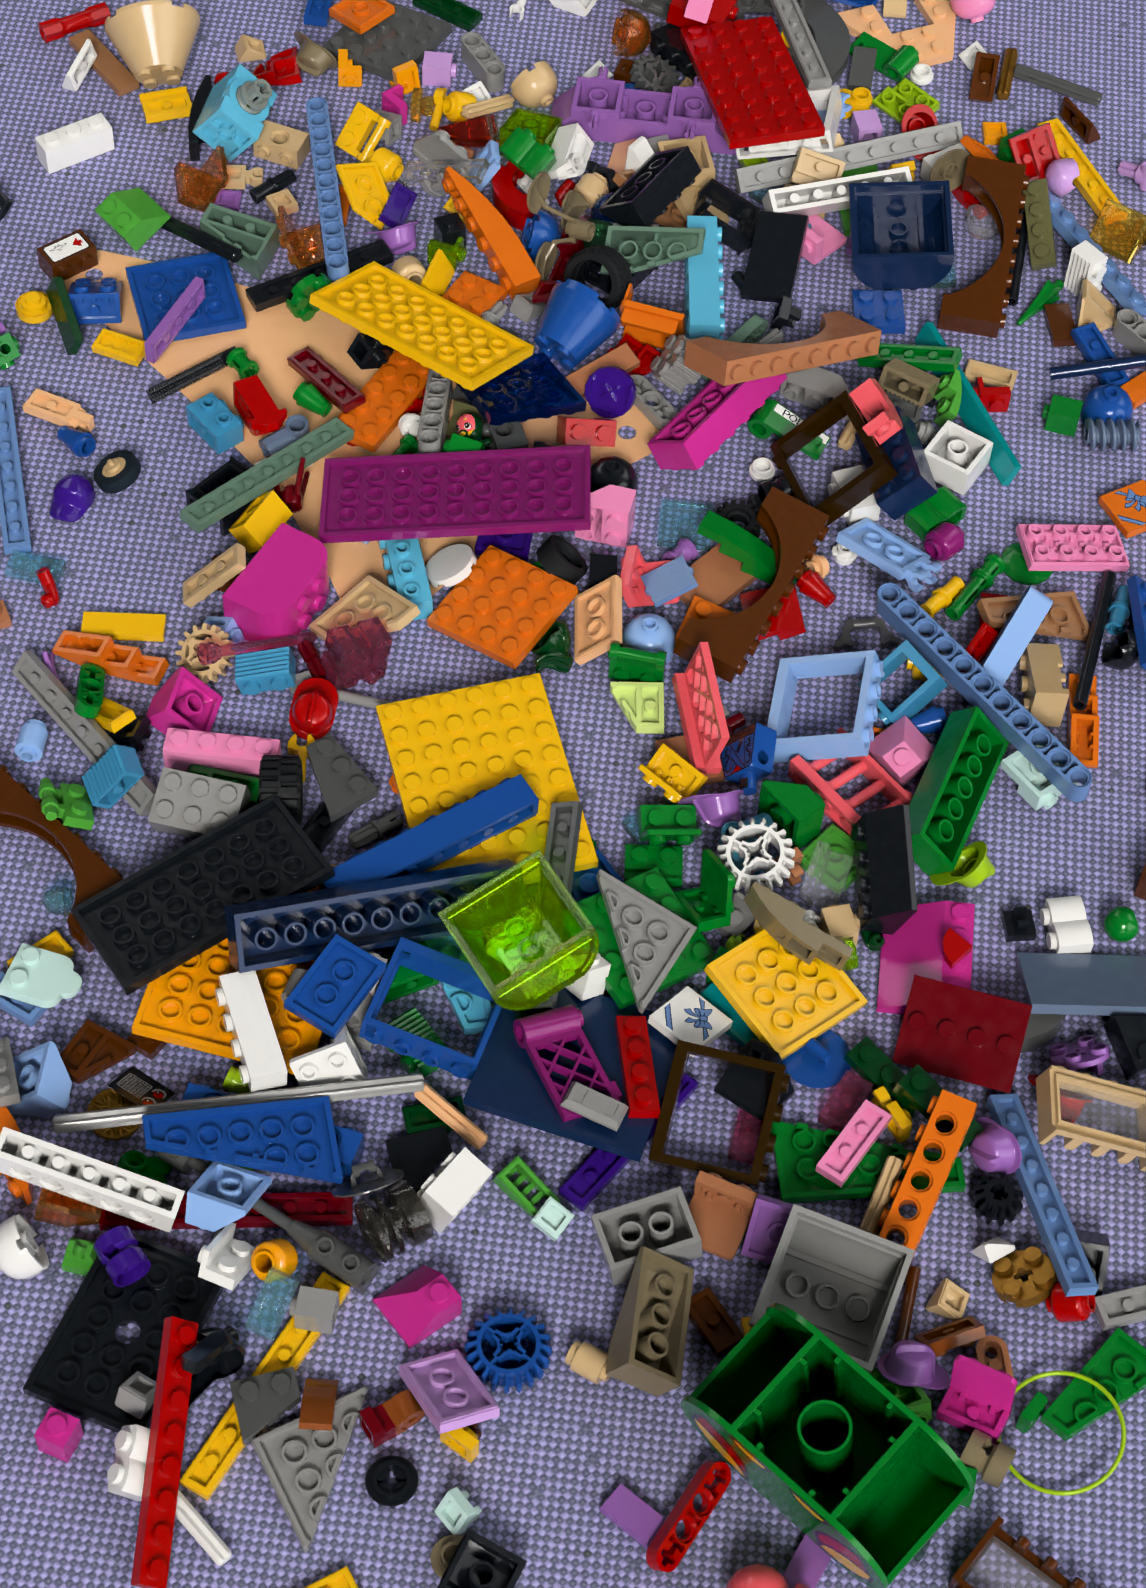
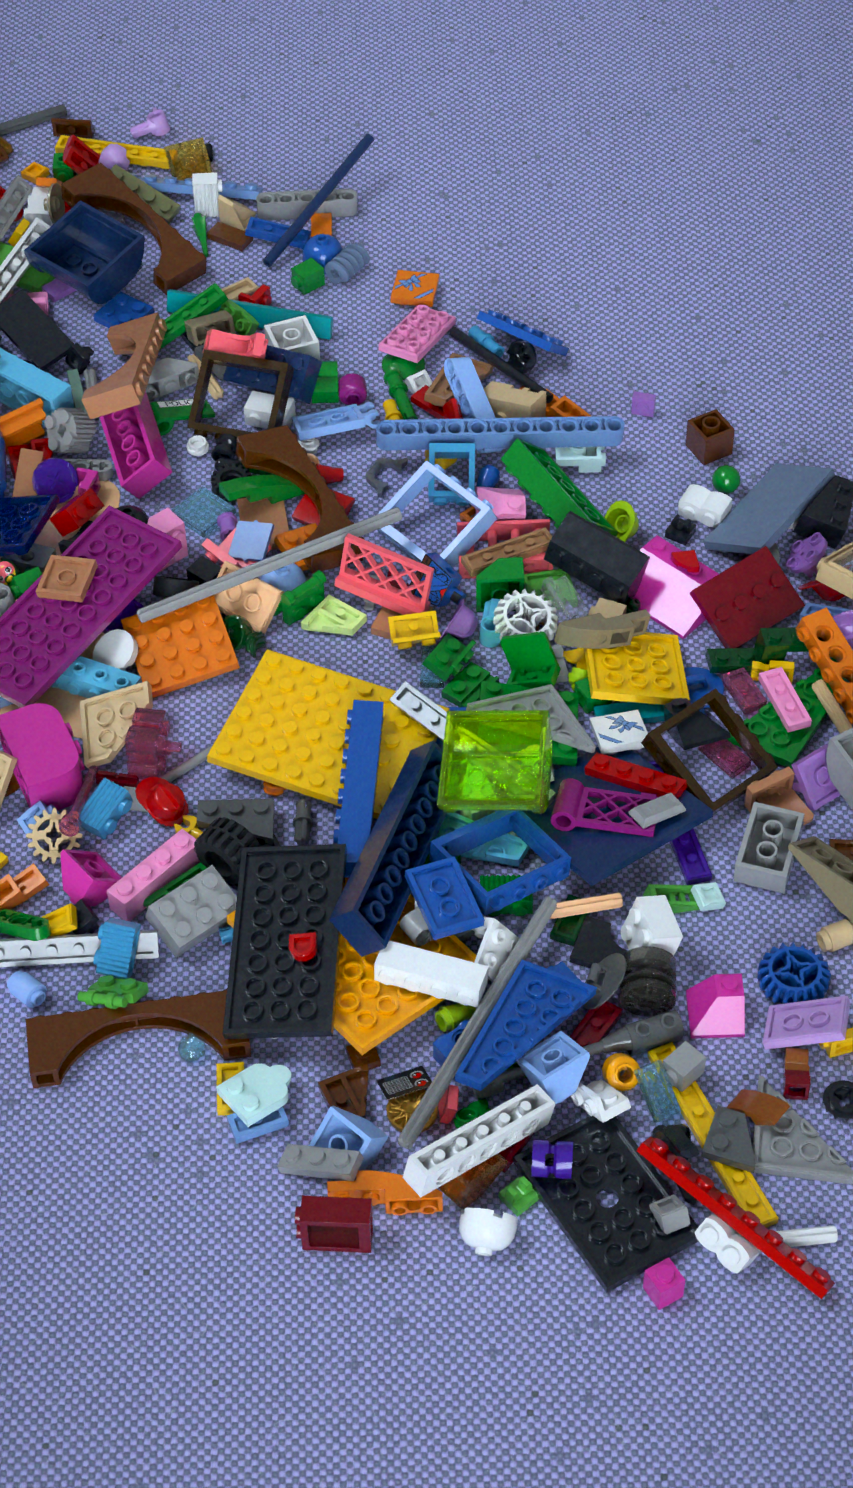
camera: 50 degrees left, 5 degrees down
(134, 1139) = (448, 1104): none -> coral tile
(196, 908) = (303, 946): none -> red tile
(478, 470) = (66, 578): none -> nougat tile
(634, 422) = (87, 479): none -> dark pink bracket
(638, 611) = (267, 565): none -> light grey axle
(834, 789) = (521, 546): none -> medium nougat tile
(1011, 586) = (417, 381): none -> white slope

